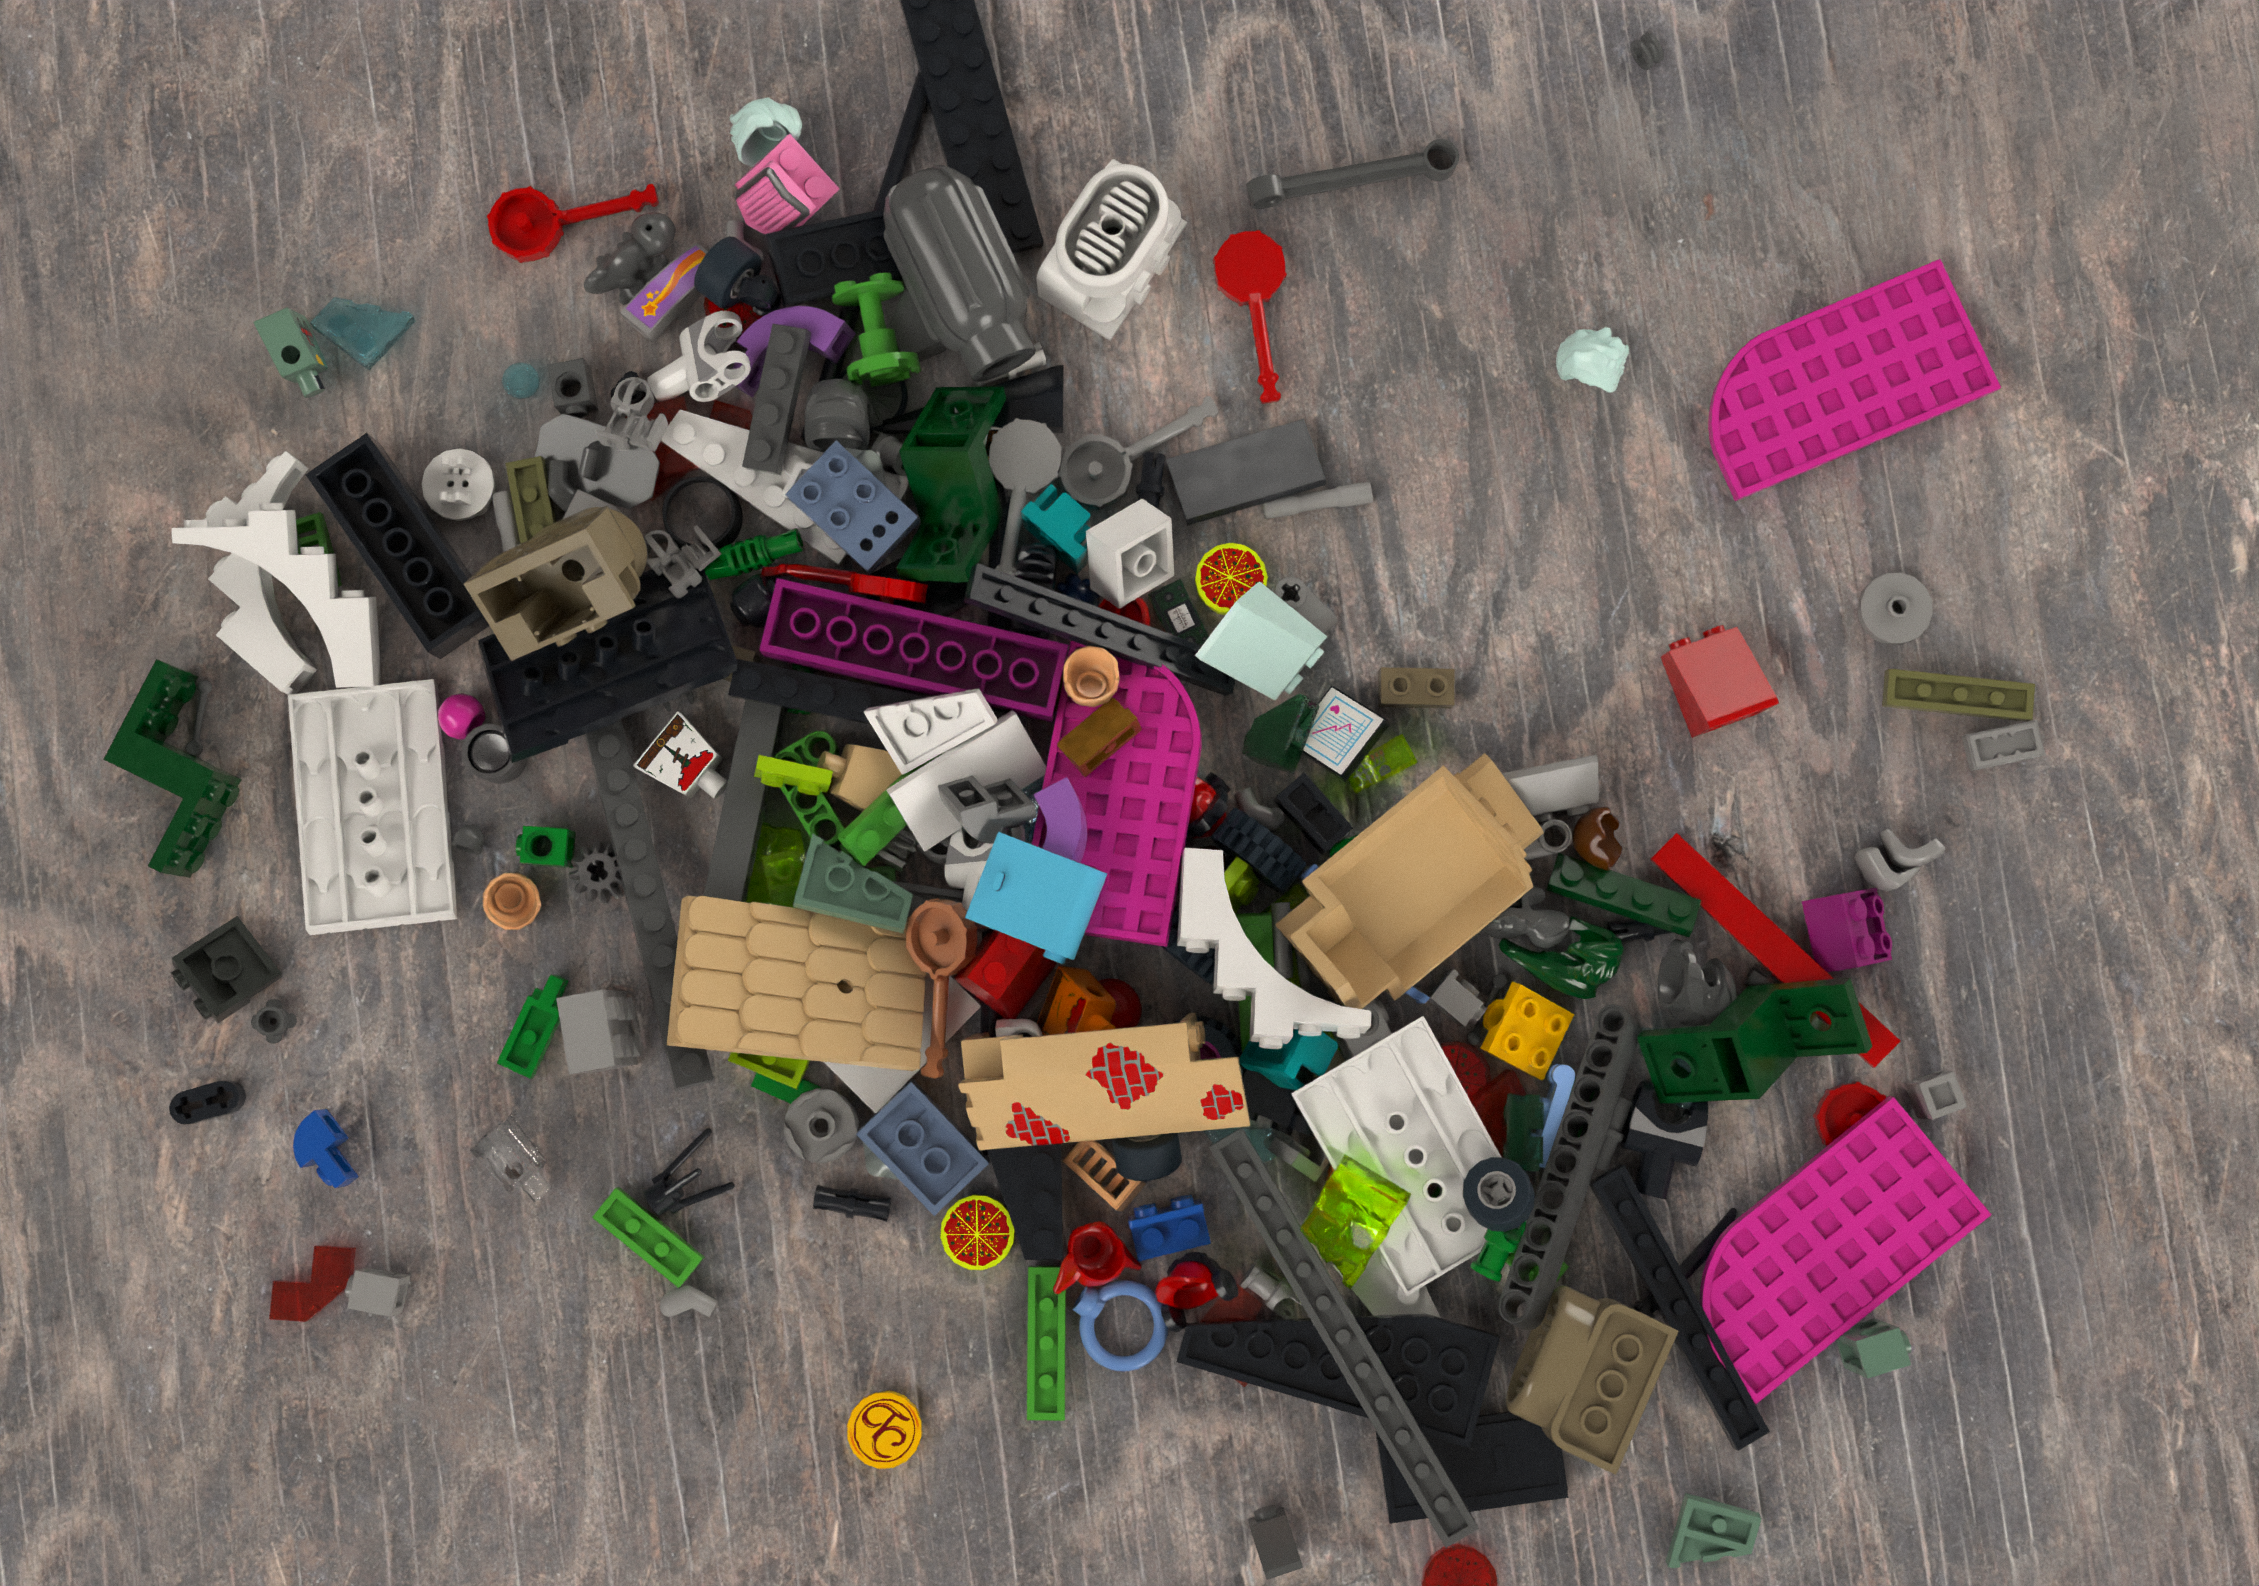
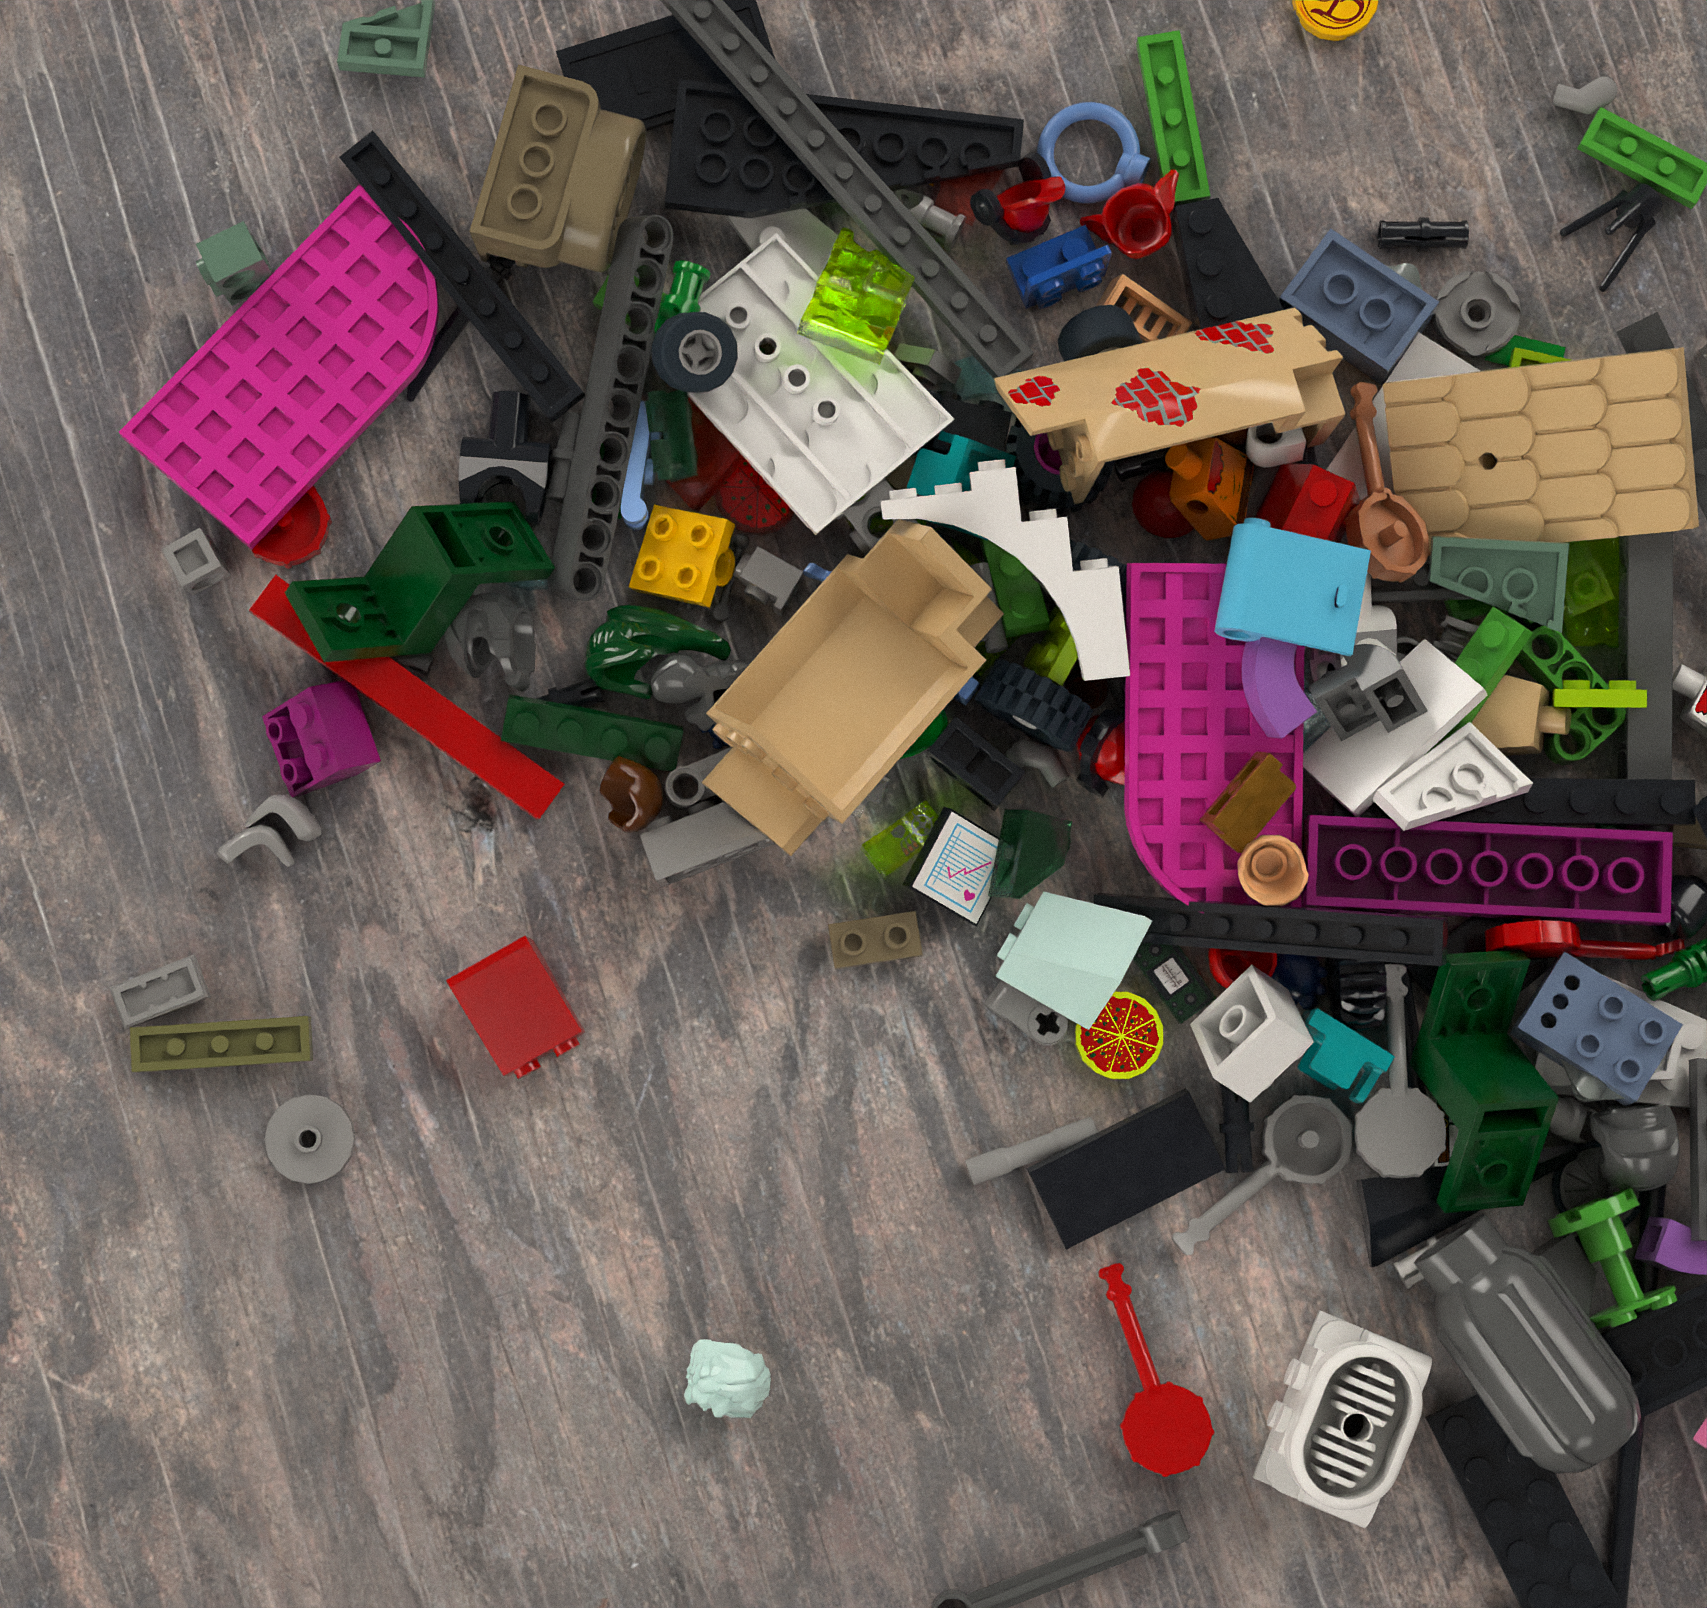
camera: 170 degrees right, 0 degrees up
(977, 1232) = (1276, 225): tile -> none
(1845, 379) = (406, 1417): dark pink plate -> none

